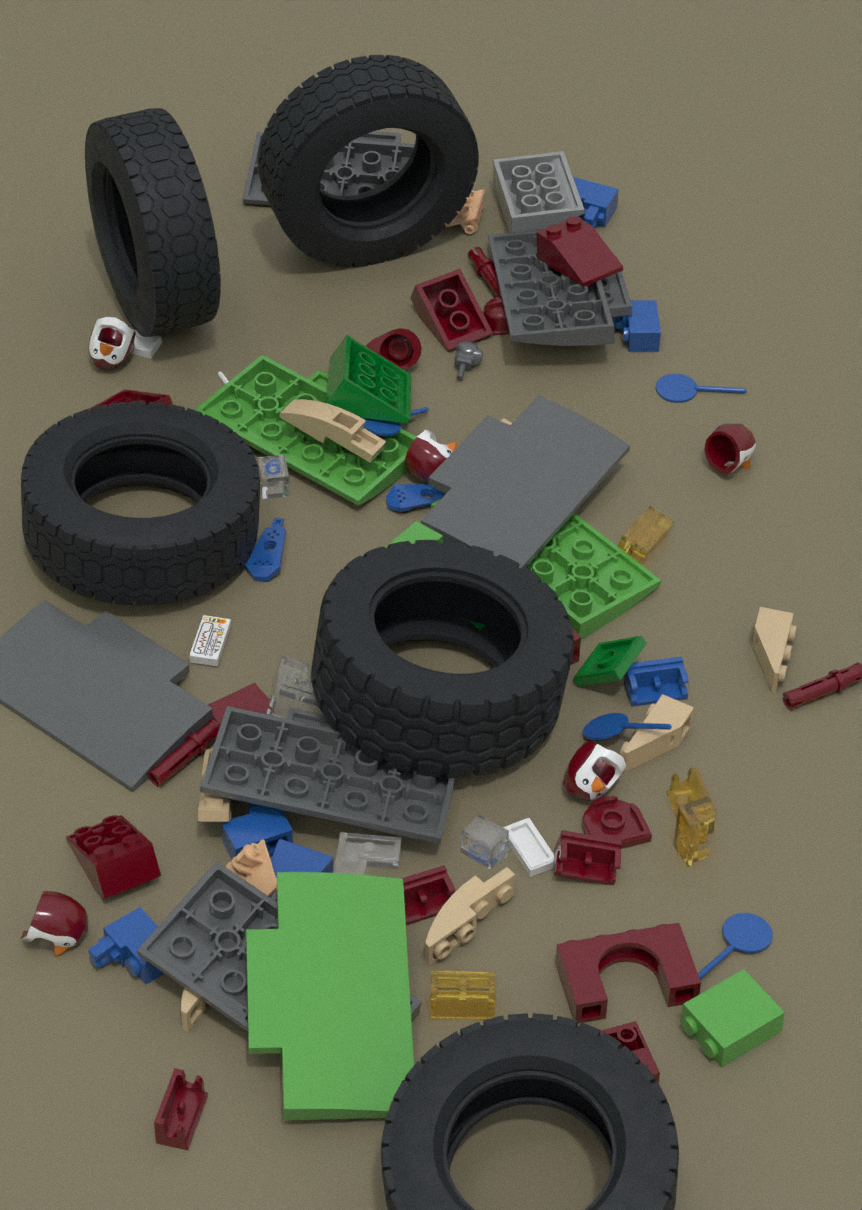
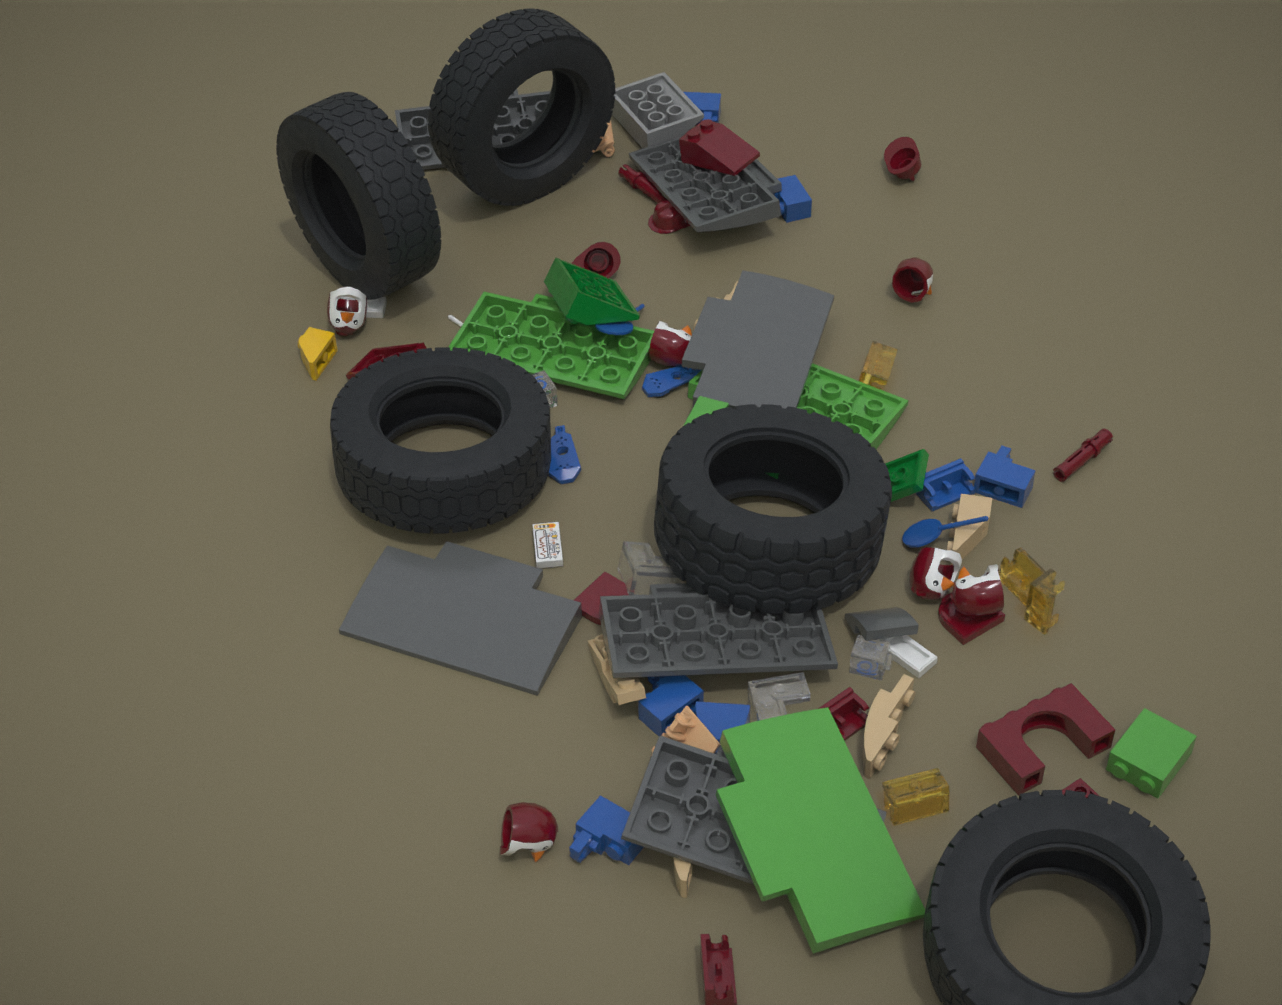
camera: 15 degrees left, 0 degrees up
(65, 378) = (317, 350): none -> yellow slope
(114, 855) = (551, 755): dark red slope -> none
(194, 745) = (575, 641): dark red pin -> none
(331, 422) = (576, 332): tan slope -> none
(450, 310) = (626, 220): dark red slope -> none
(466, 357) = (657, 255): dark grey piece -> none
(513, 809) = (882, 623): none -> dark grey slope
(587, 857) = (964, 648): dark red hinge -> none
(624, 806) = (978, 595): none -> dark red piece
(681, 388) = (845, 242): blue piece -> none
(721, 690) = (1004, 480): none -> blue hinge
(744, 933) = (1121, 678): blue piece -> none
(770, 643) = (1023, 430): tan slope -> none
(787, 308) = (903, 158): none -> dark red piece

